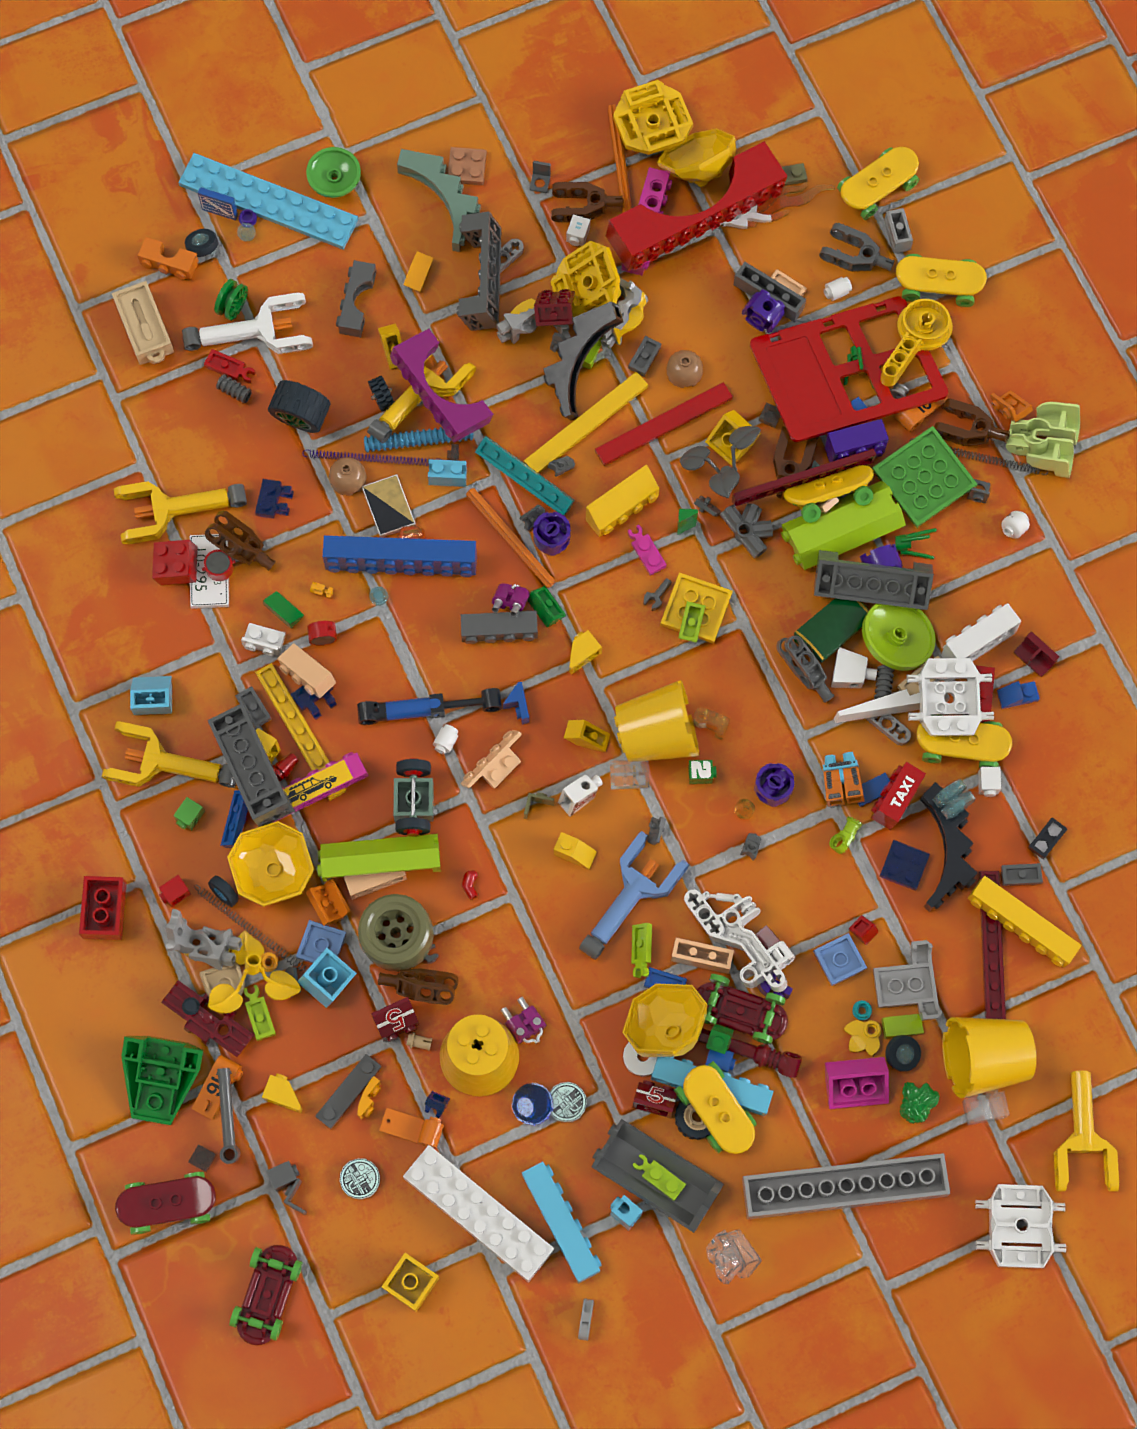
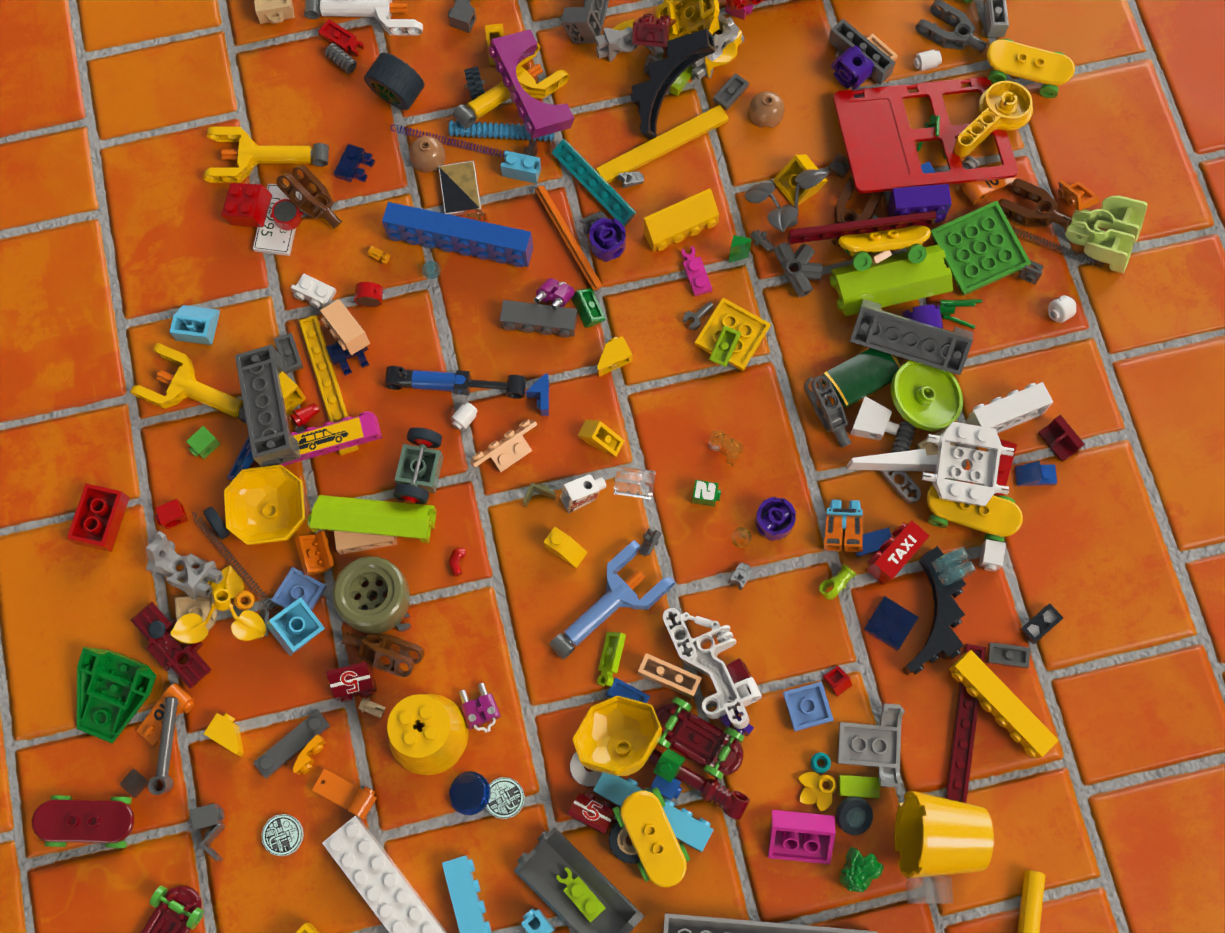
camera: 15 degrees right, 0 degrees up
(259, 1015) = (223, 650): lime plate -> none
(283, 609) = (339, 266): green slope -> none
(437, 1102) = (374, 772): clear blue tile -> none
(657, 725) = (670, 439): yellow cone -> none
(663, 424) = (736, 157): red tile -> none

